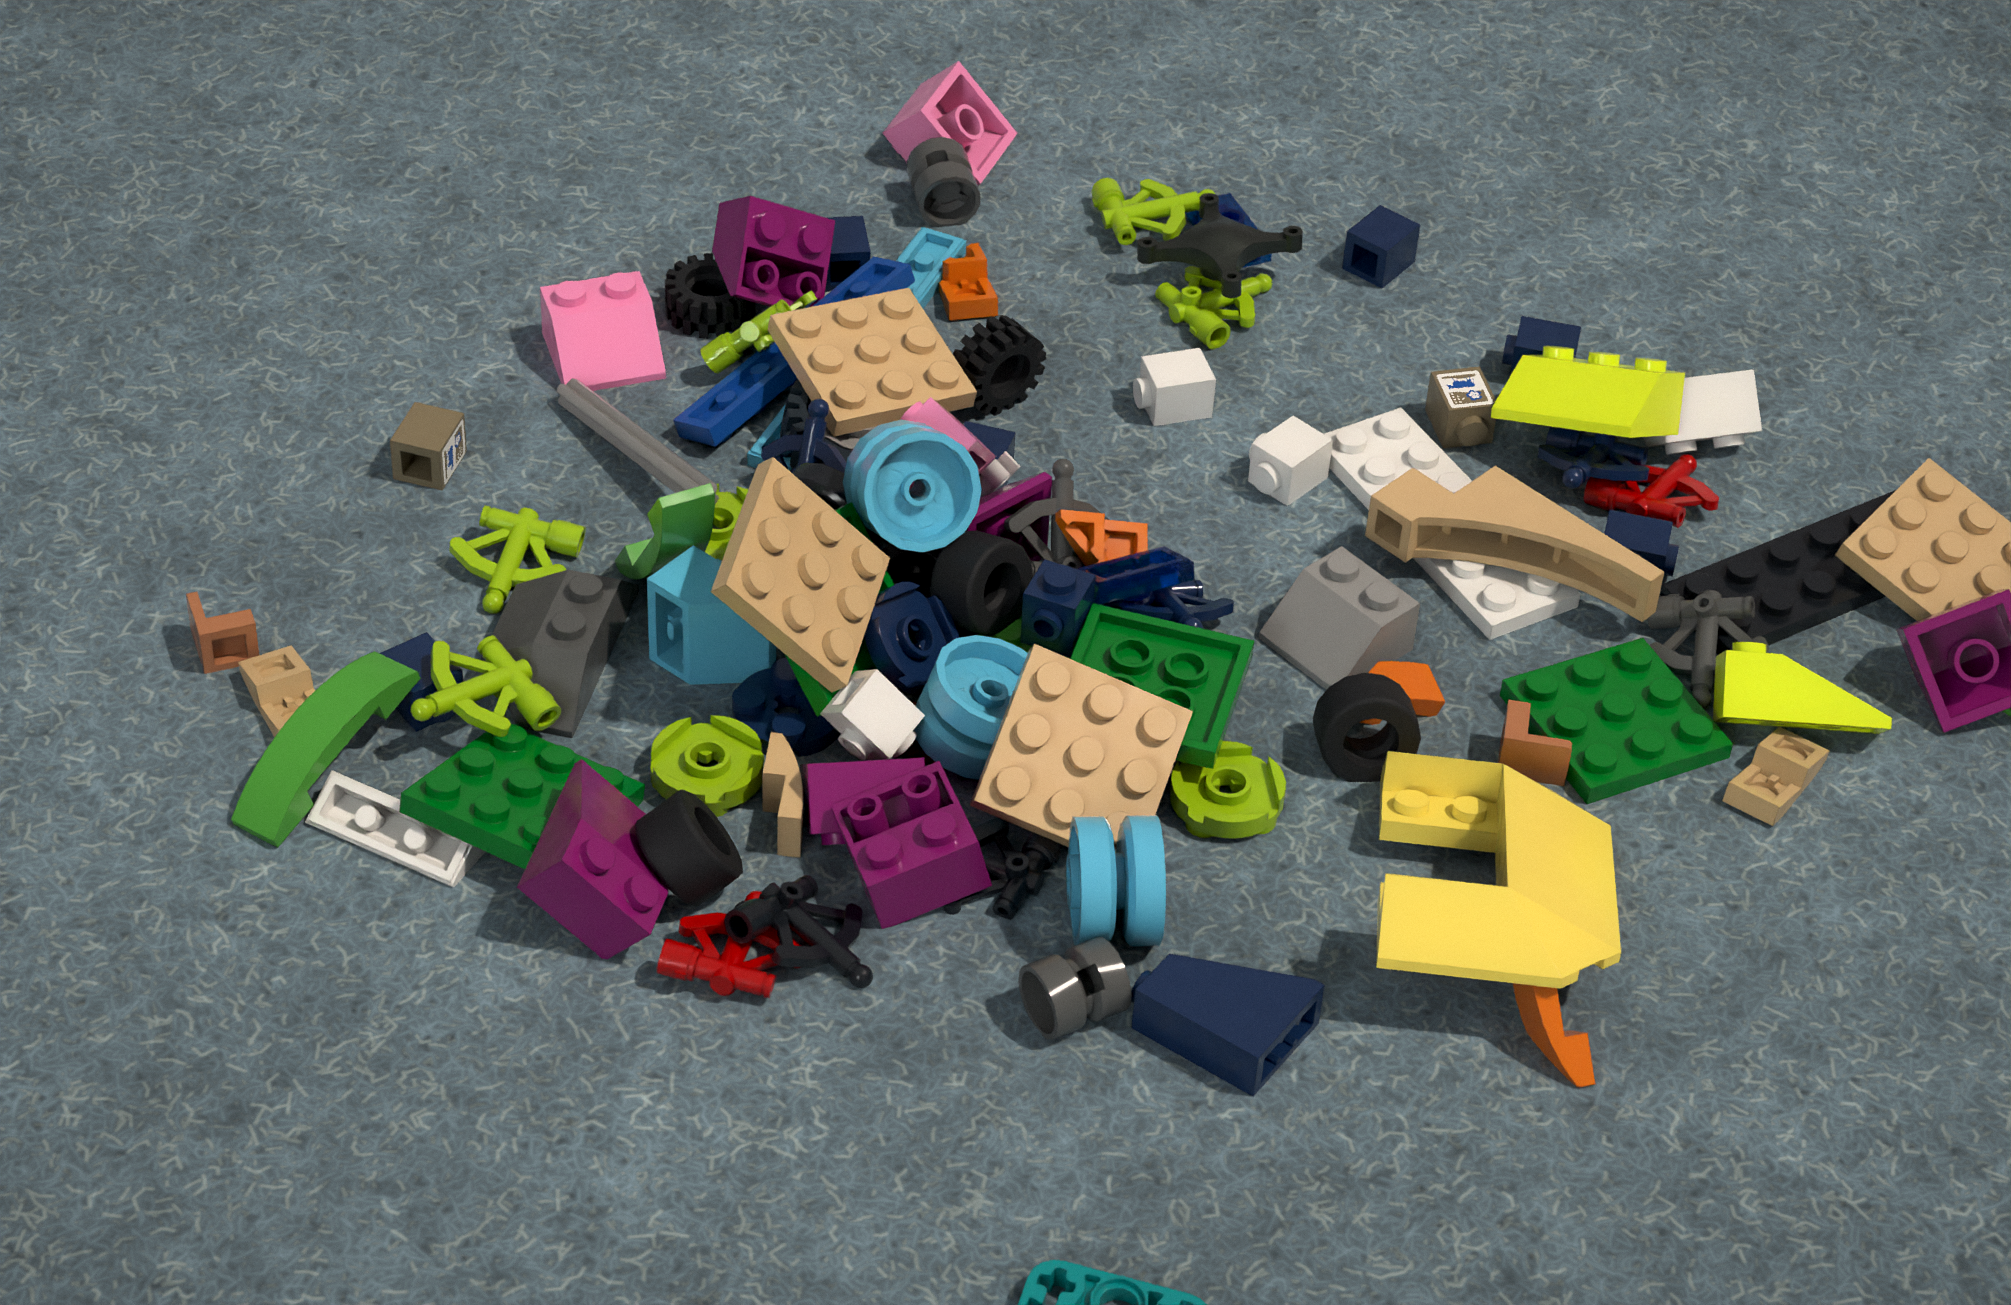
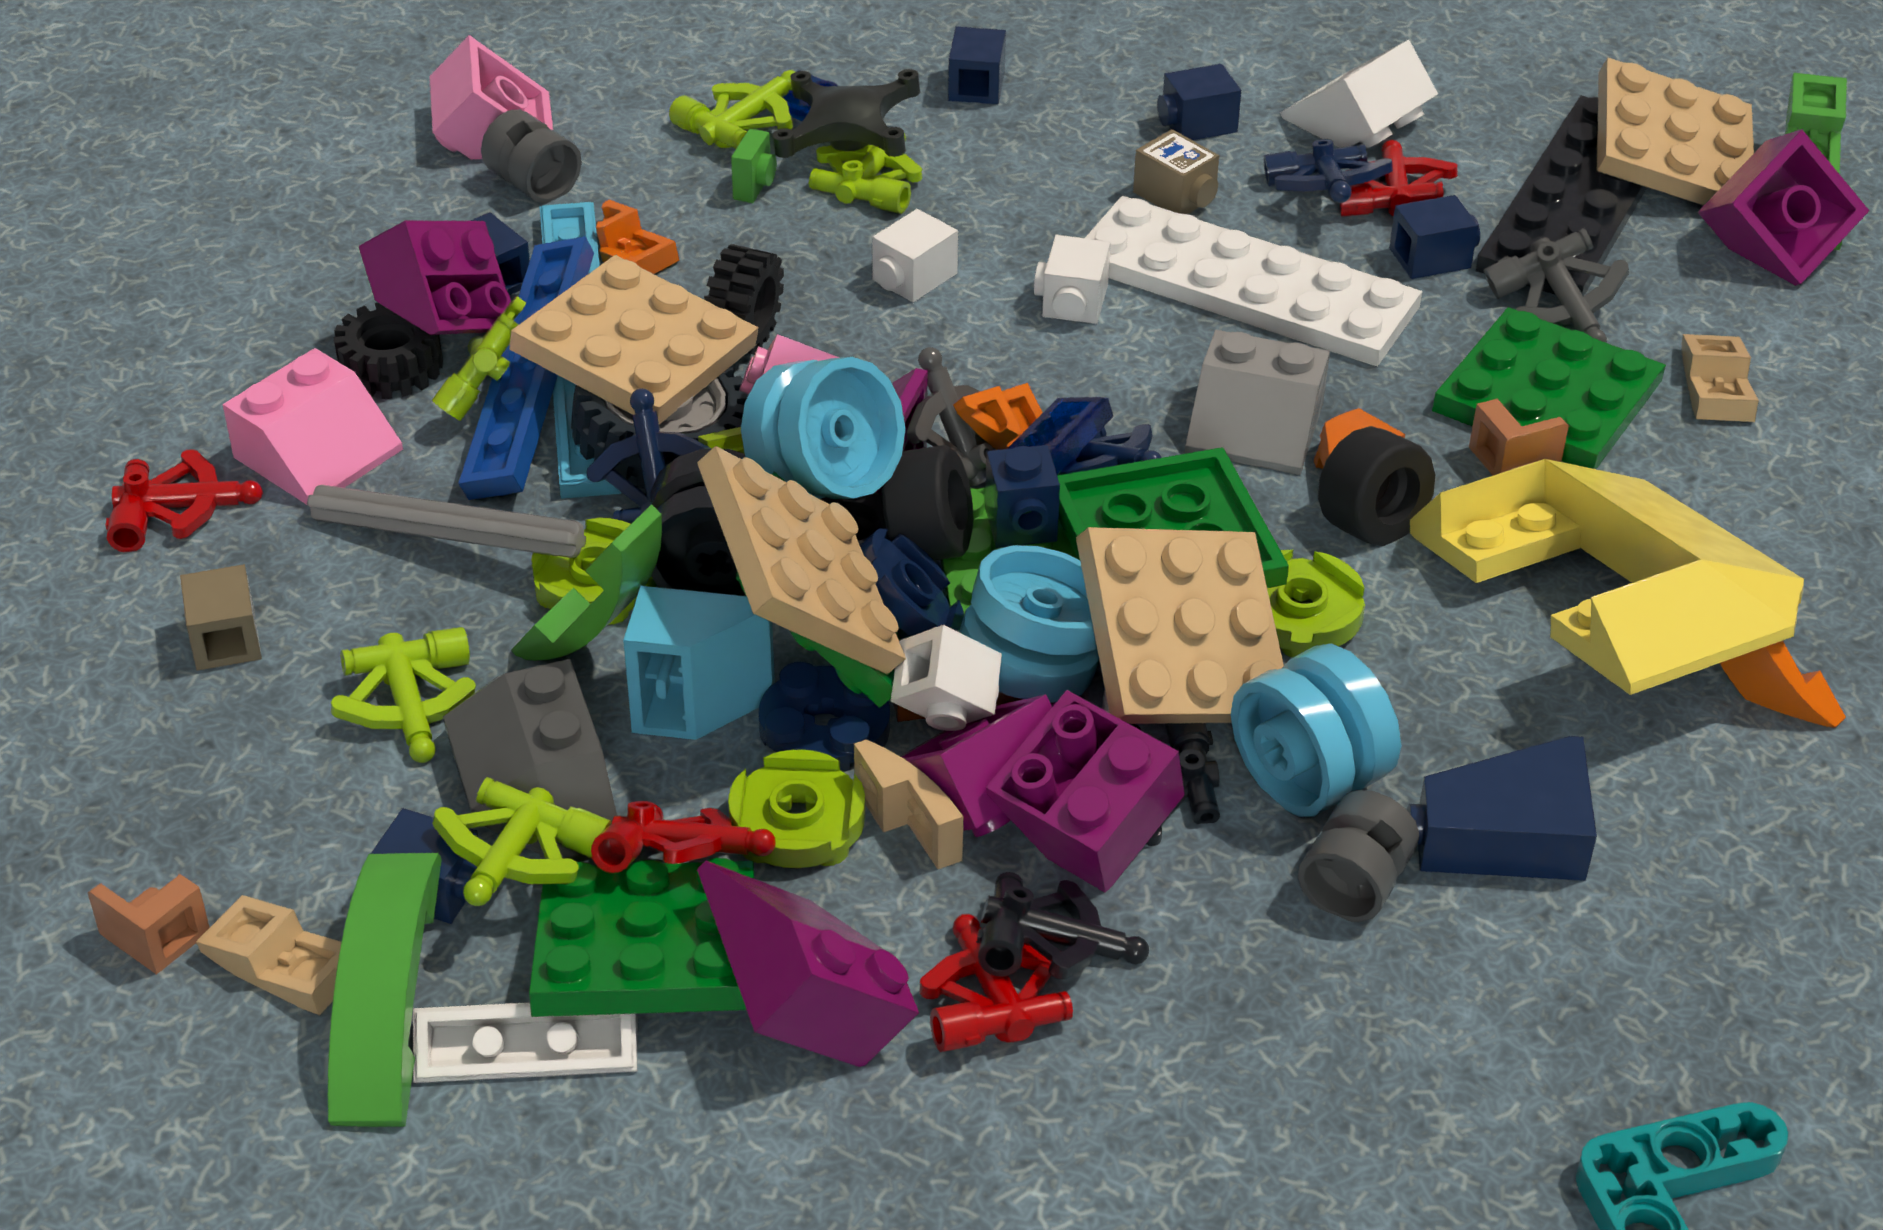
camera: 30 degrees left, 0 degrees up
(455, 333) = (147, 498): none -> red piece
(592, 737) = (677, 839): none -> red piece
(688, 848) = (878, 902): black tyre -> none
(1112, 259) = (752, 166): none -> bright green plate
(1510, 527) = (1347, 252): tan arch -> none
(1593, 394) = (1297, 111): neon yellow slope -> none
(1779, 692) = (1671, 300): neon yellow slope -> none

